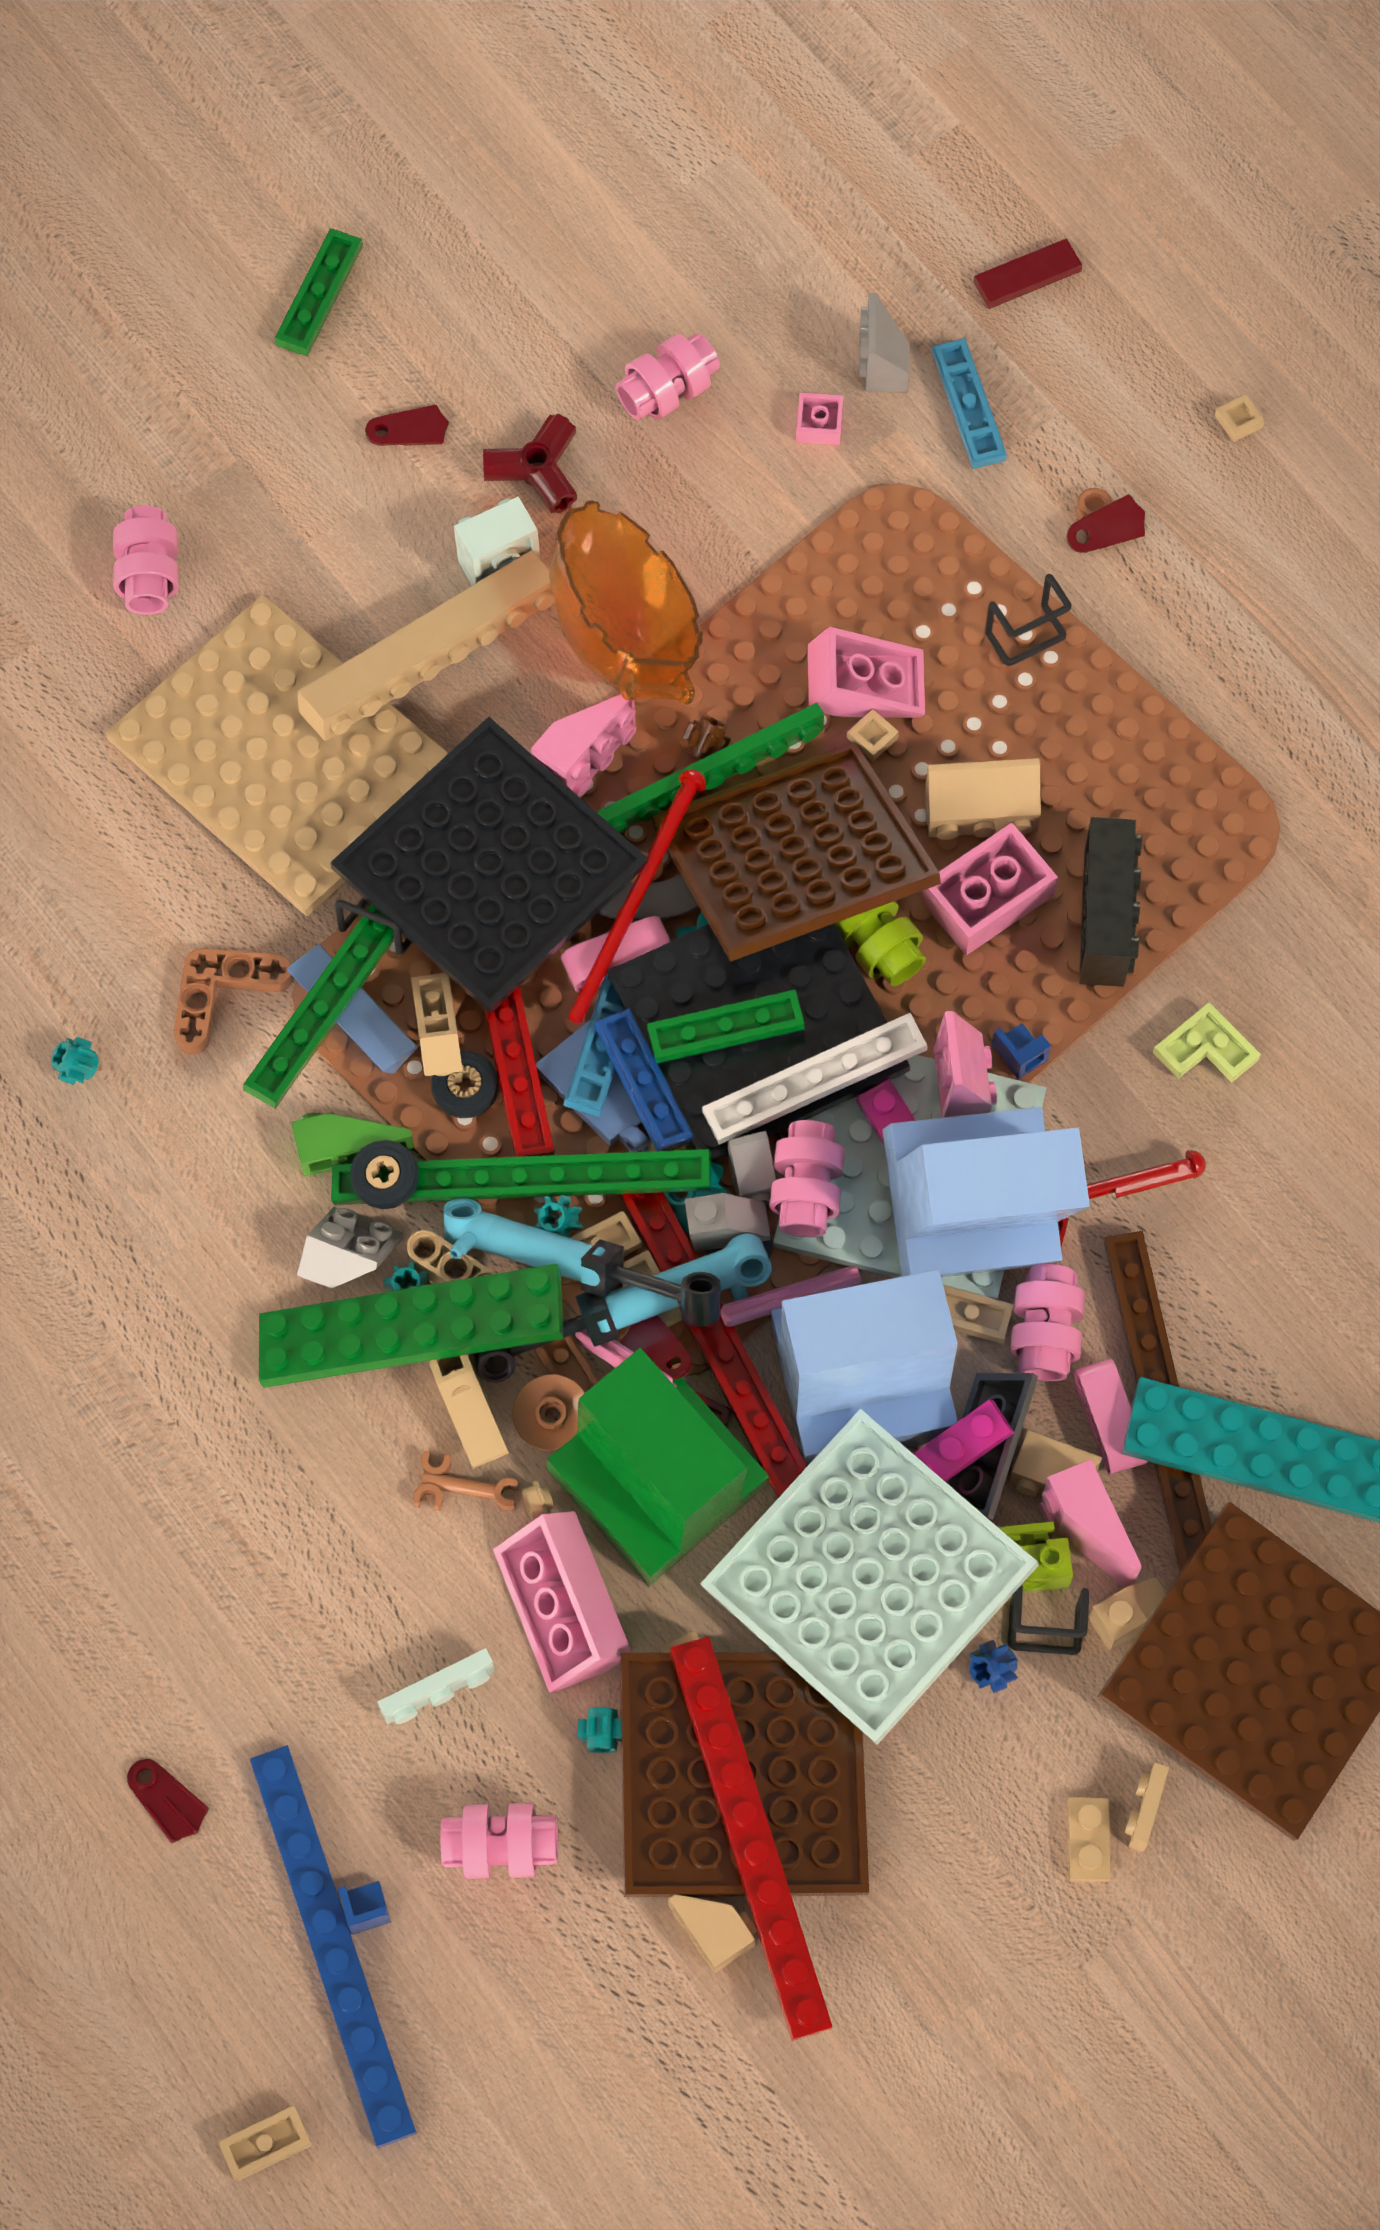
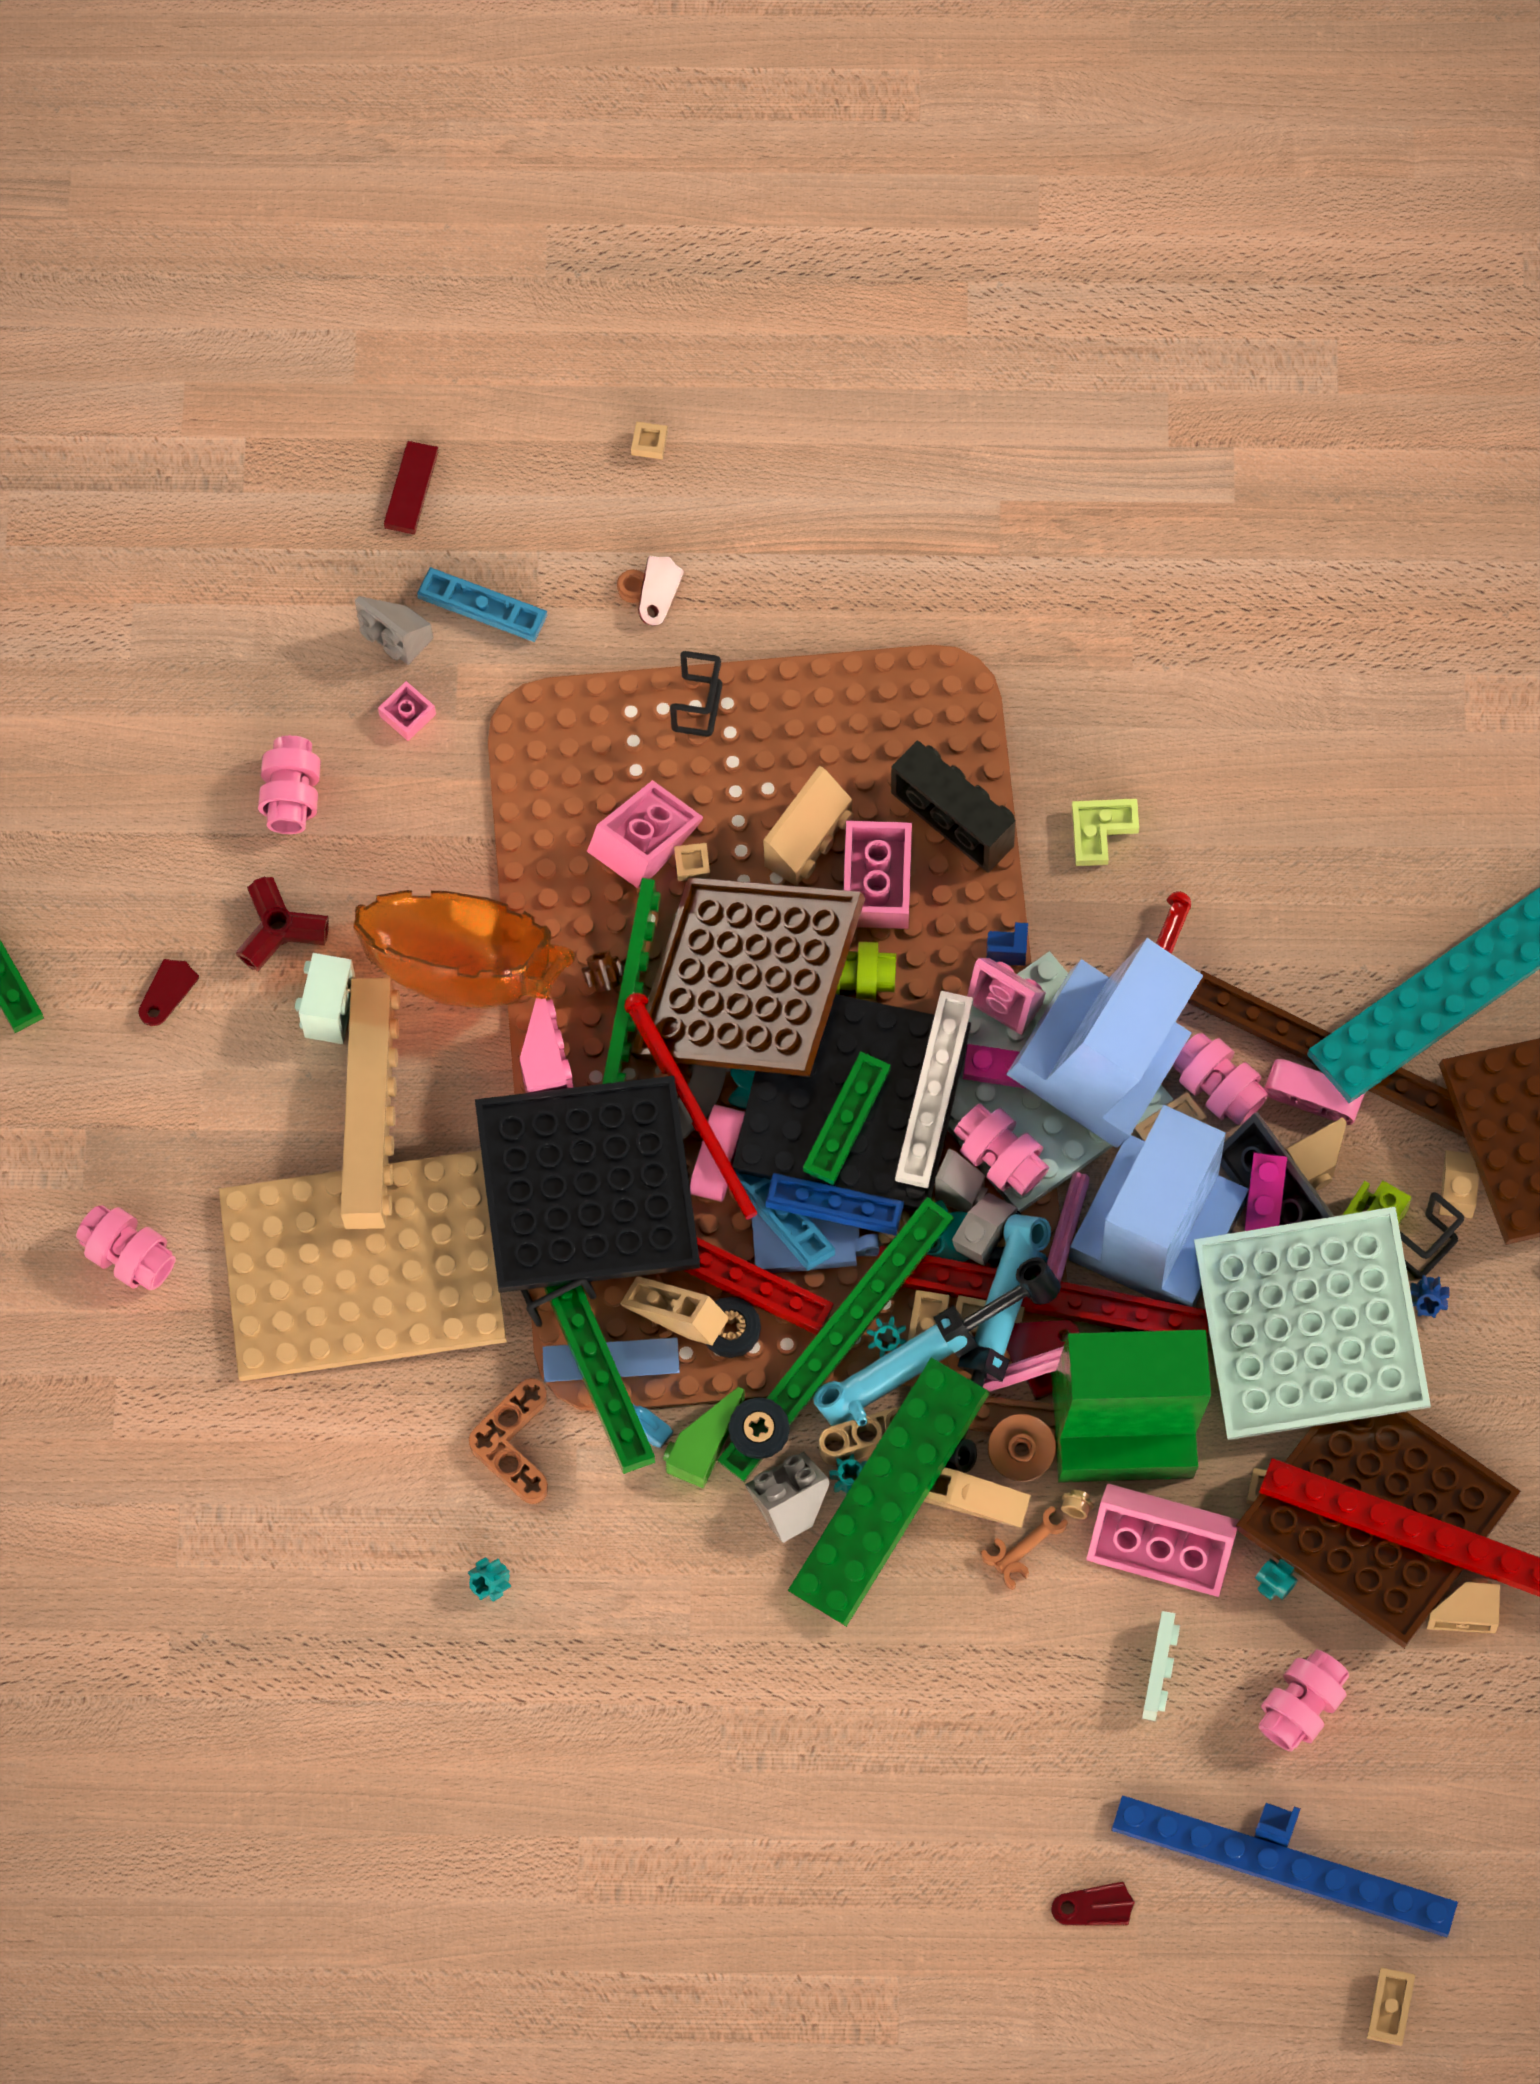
camera: 50 degrees left, 0 degrees up
(323, 1084) = (655, 1429): none -> dark azure piece
(1086, 1515) = (1383, 1155): bright pink slope -> none

